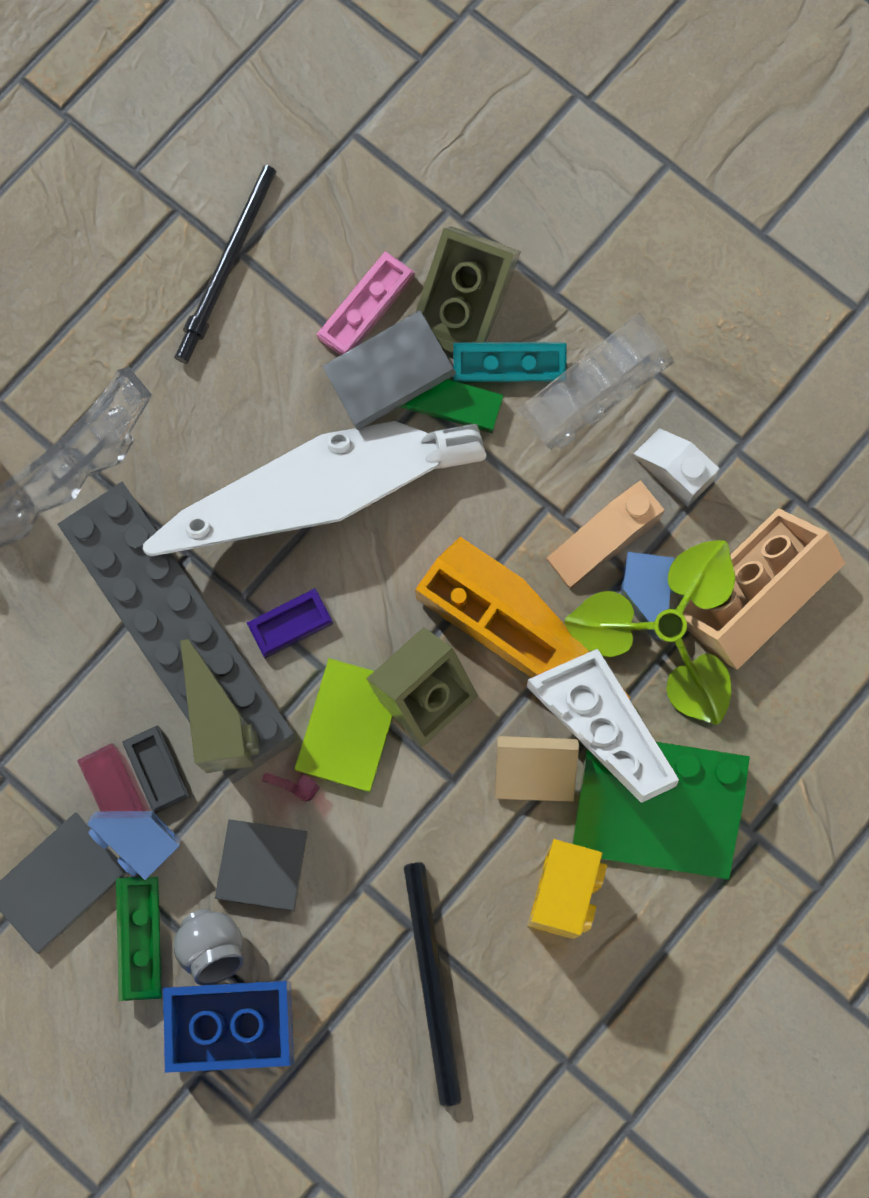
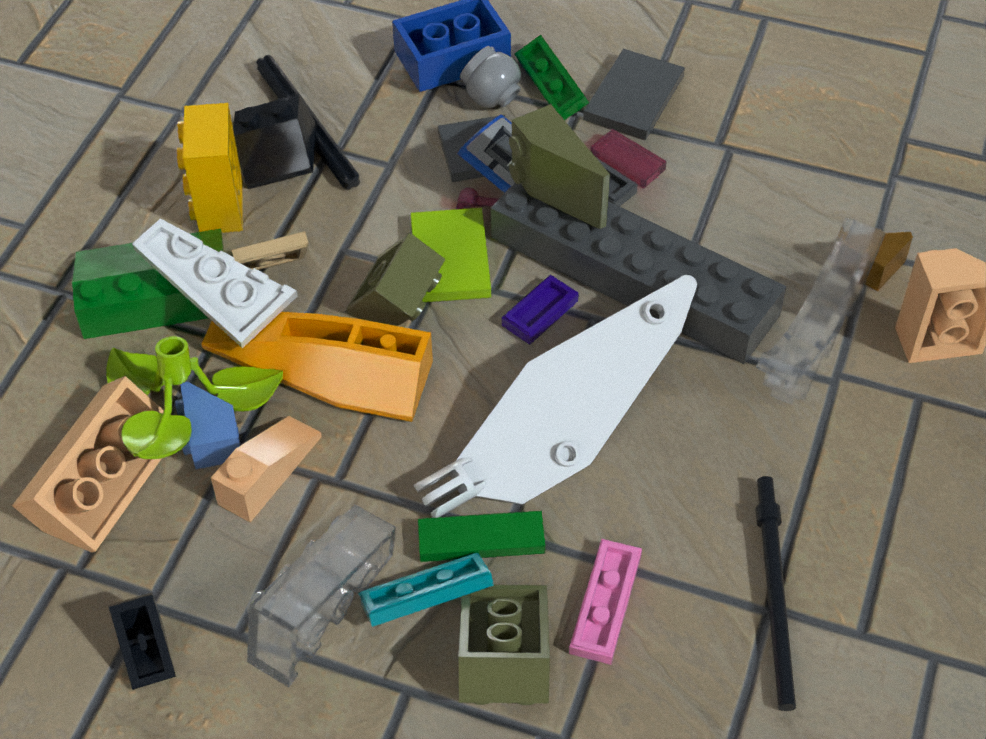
camera: 155 degrees right, 25 degrees down
(136, 837) = (595, 117): medium blue slope -> none
(242, 821) = (491, 153): none -> slope
(389, 370) = (547, 532): dark grey tile -> none
(481, 937) = (275, 141): none -> black slope
(677, 465) = (211, 544): white slope -> none
(756, 395) = (142, 640): none -> black slope

